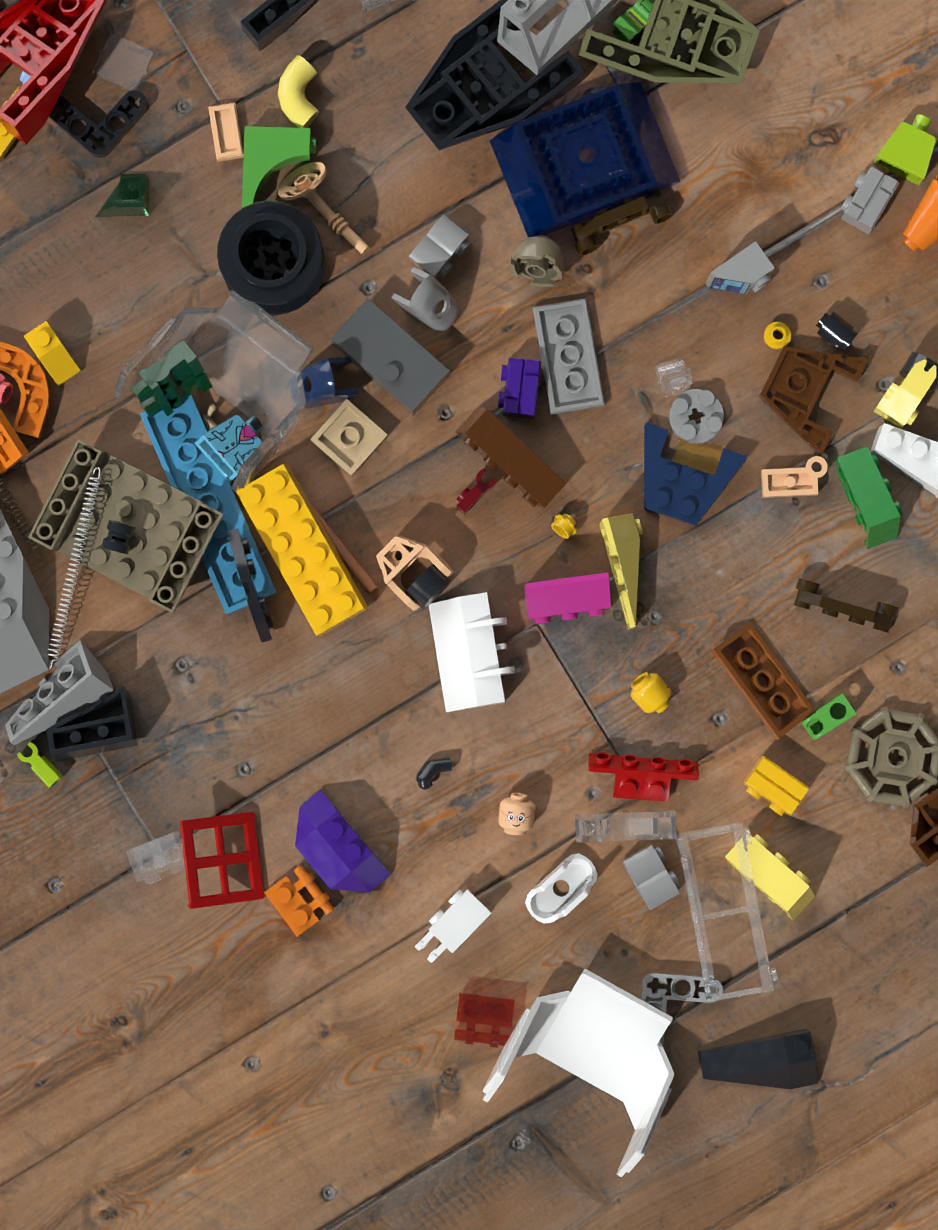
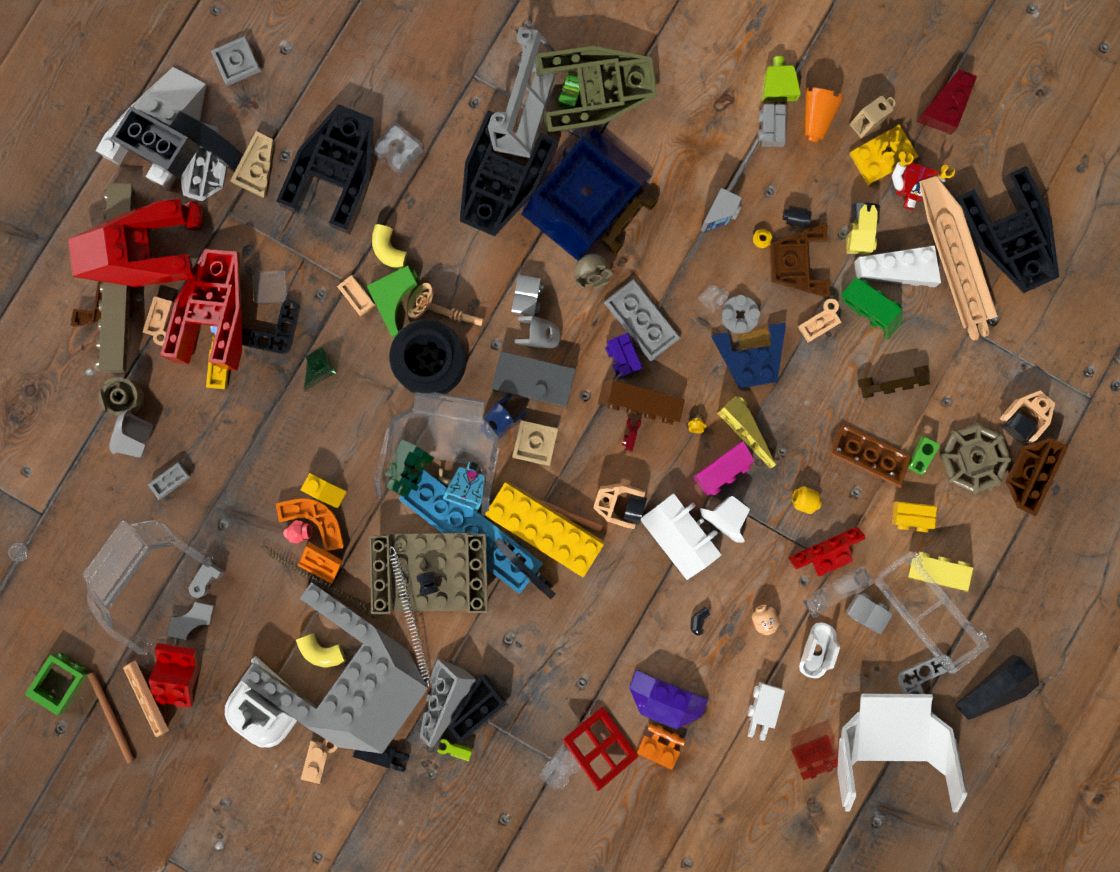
camera: 20 degrees left, 0 degrees up
(538, 660) = (728, 518): none -> white piece

